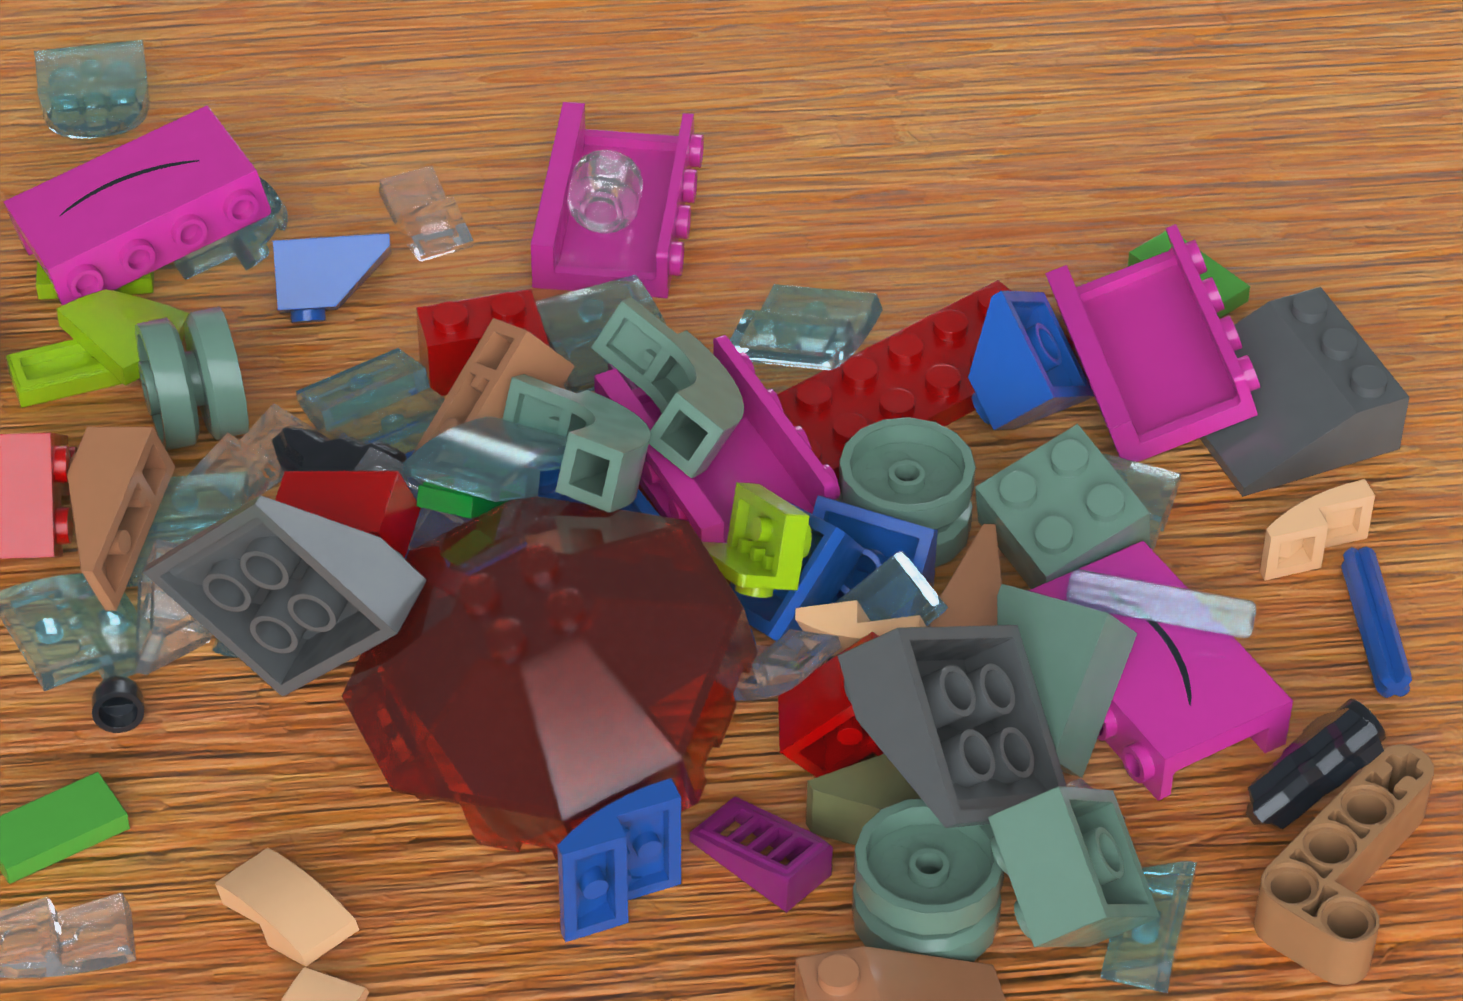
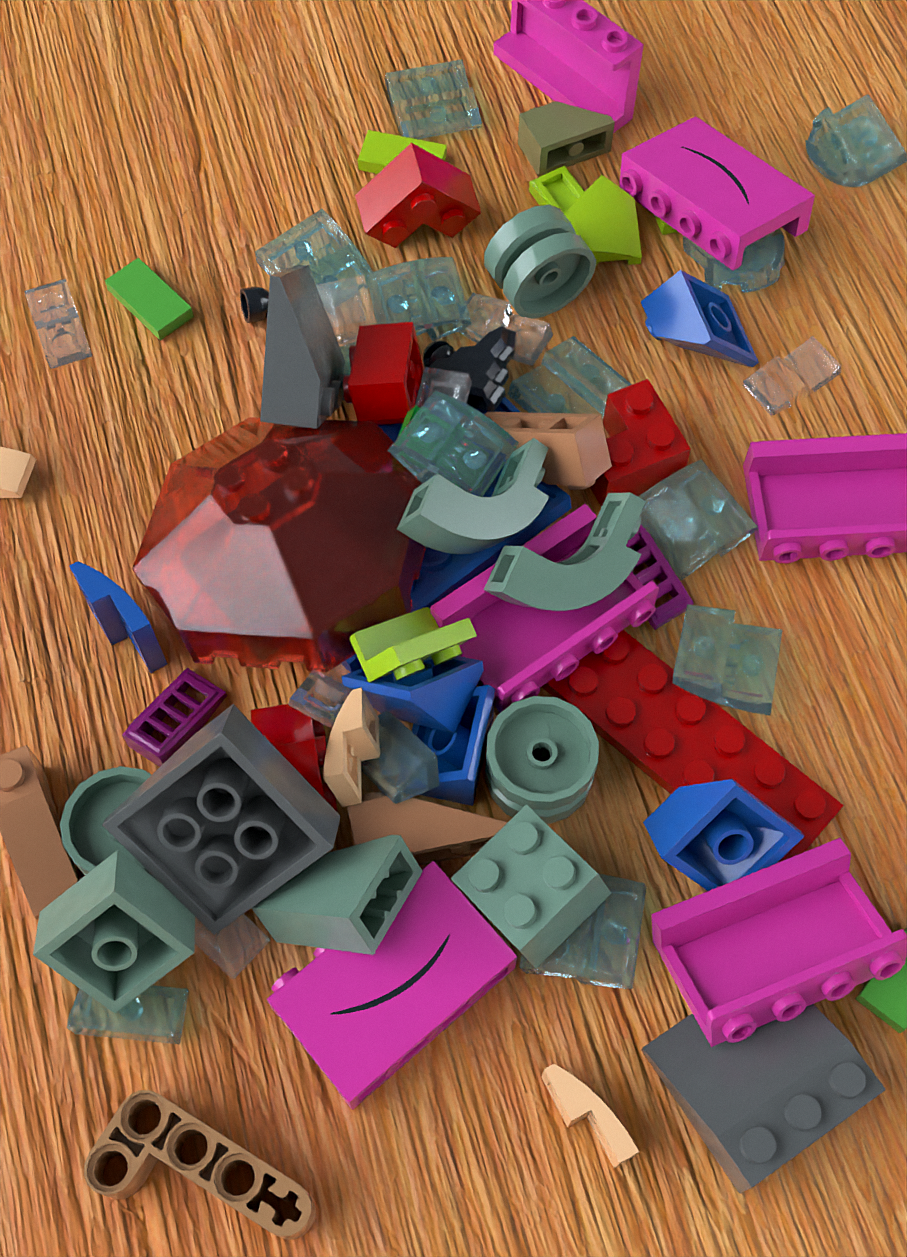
camera: 80 degrees right, 20 degrees up
(114, 497) = (398, 247): nougat slope -> none
(289, 905) = (85, 436): light nougat slope -> none
(604, 191) = (837, 483): clear head -> none
(1162, 603) = (429, 977): clear light blue axle -> none
(1315, 764) = (303, 1135): black rock -> none
(1376, 622) = (497, 1180): blue axle -> none

